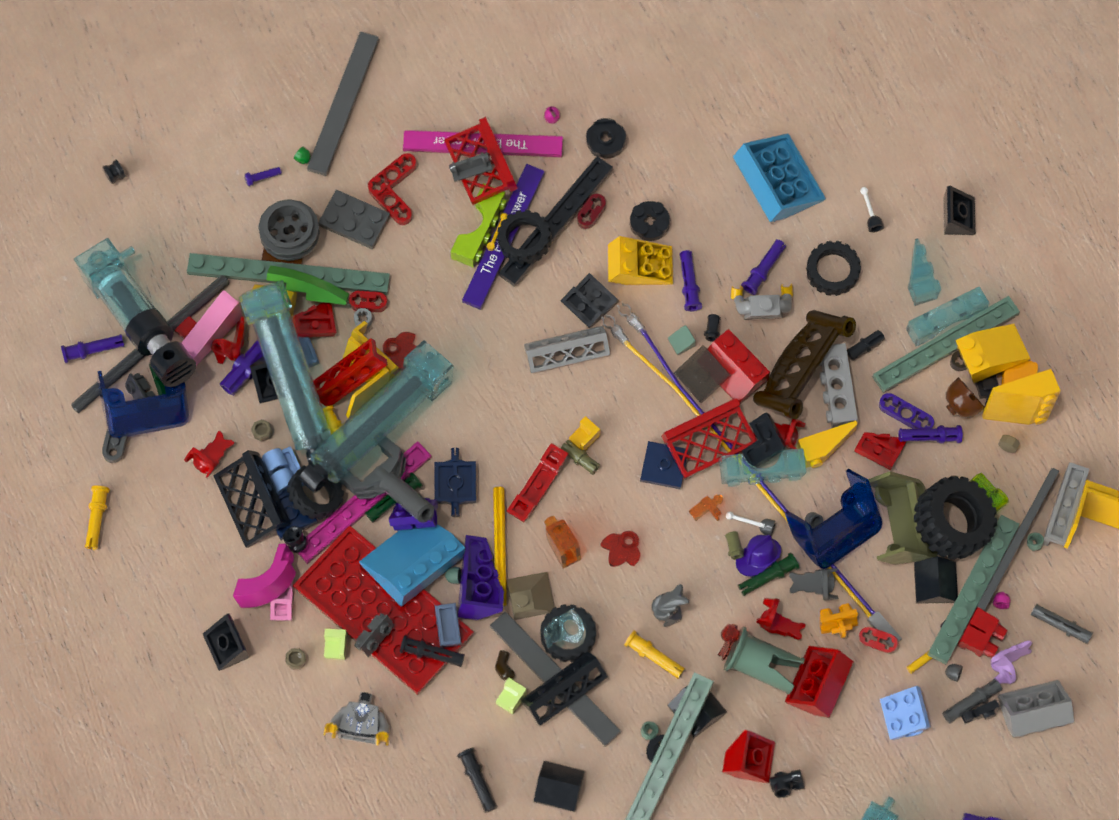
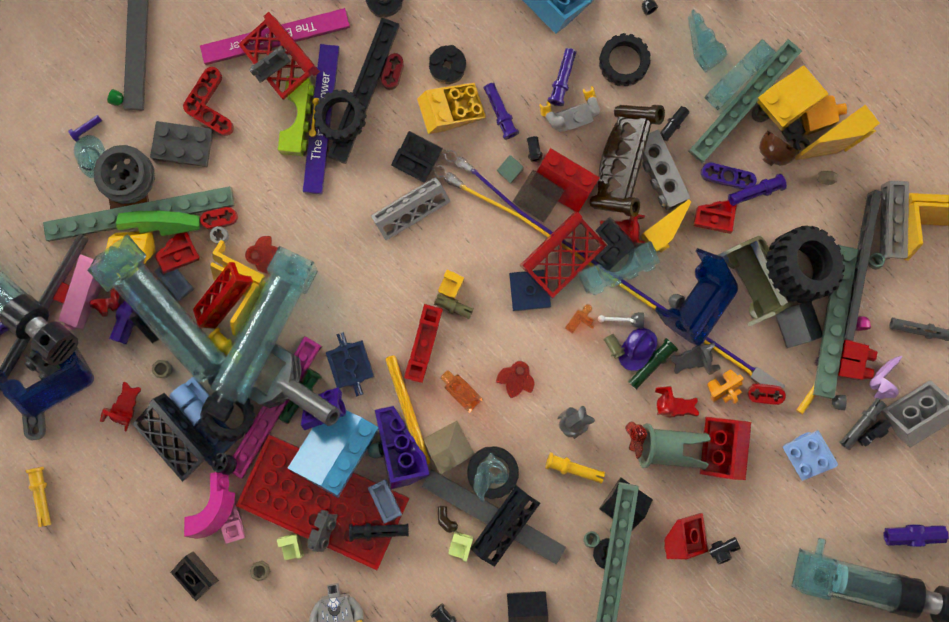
camera: 15 degrees left, 15 degrees up
(255, 202) = (87, 152): none -> clear light blue piece
(998, 496) = (832, 229): clear neon green piece -> none

